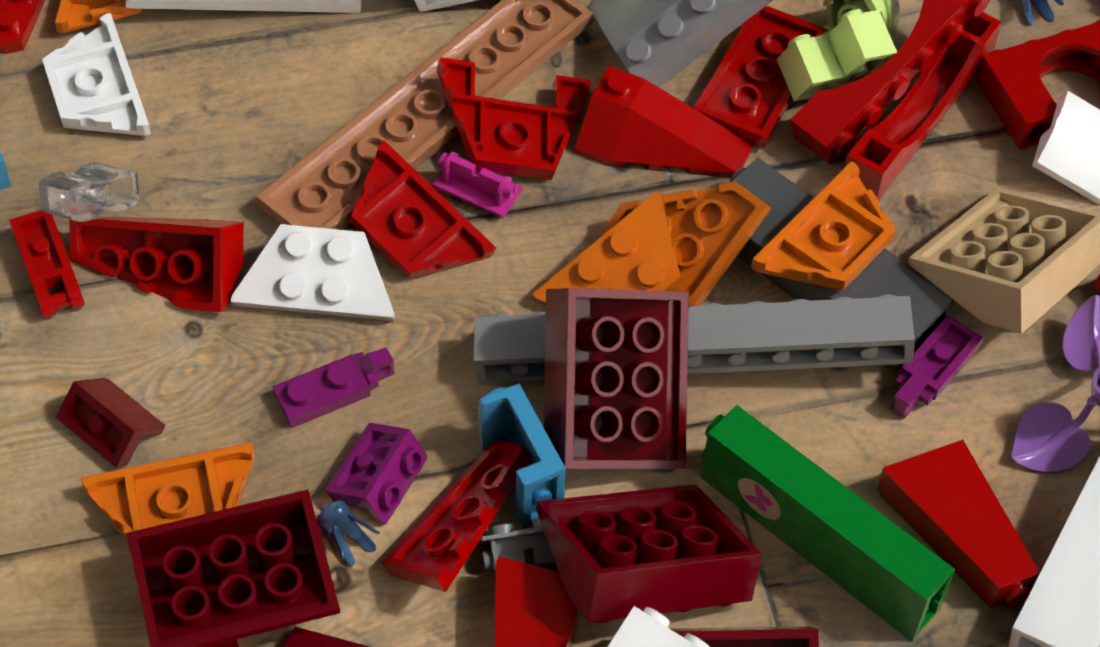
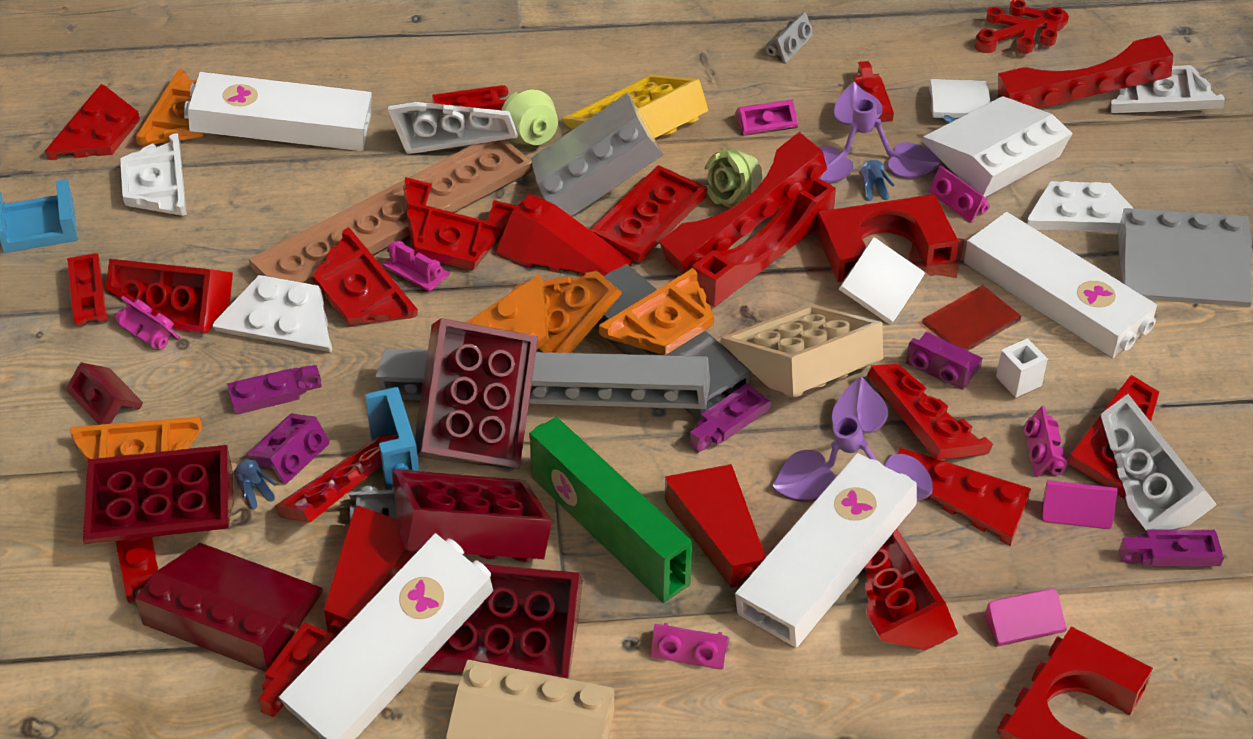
camera: 10 degrees right, 10 degrees down
(89, 191) = (127, 242): clear brick -> none
(155, 314) = (155, 330): none -> dark pink hinge
(838, 56) = (715, 193): yellowish green brick -> none

